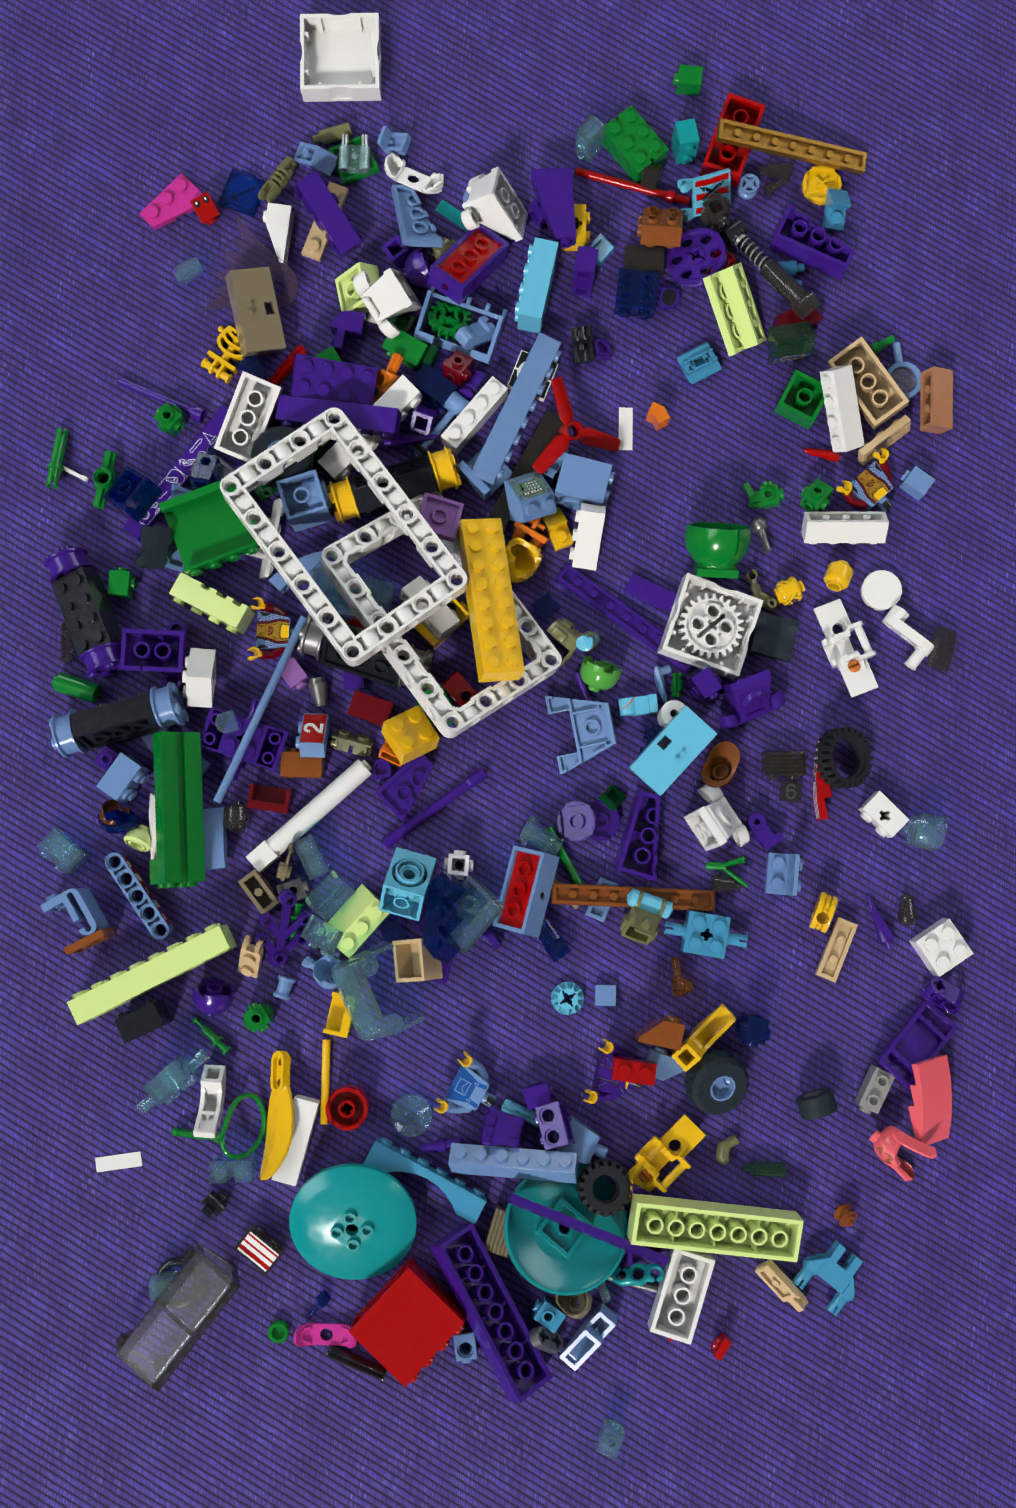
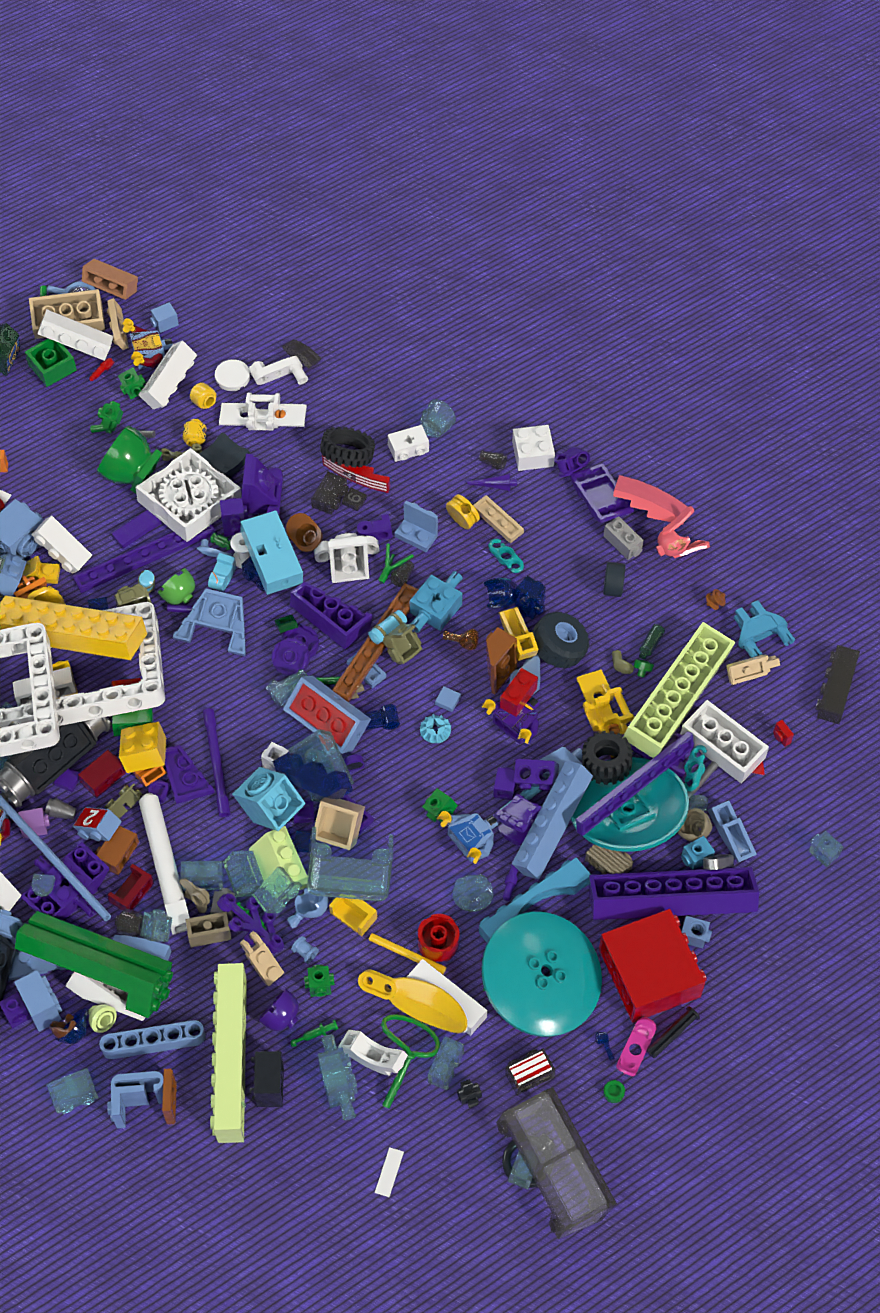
camera: 65 degrees left, 25 degrees down
(239, 844) = (156, 926): none -> clear light blue brick
(481, 1044) = (437, 803): none -> green brick
(731, 1174) = (643, 666): none -> green tile
(746, 996) = (500, 592): none -> clear blue piece
(796, 966) = (514, 559): none -> teal piece
(804, 1380) = (838, 684): none -> clear smoke brick

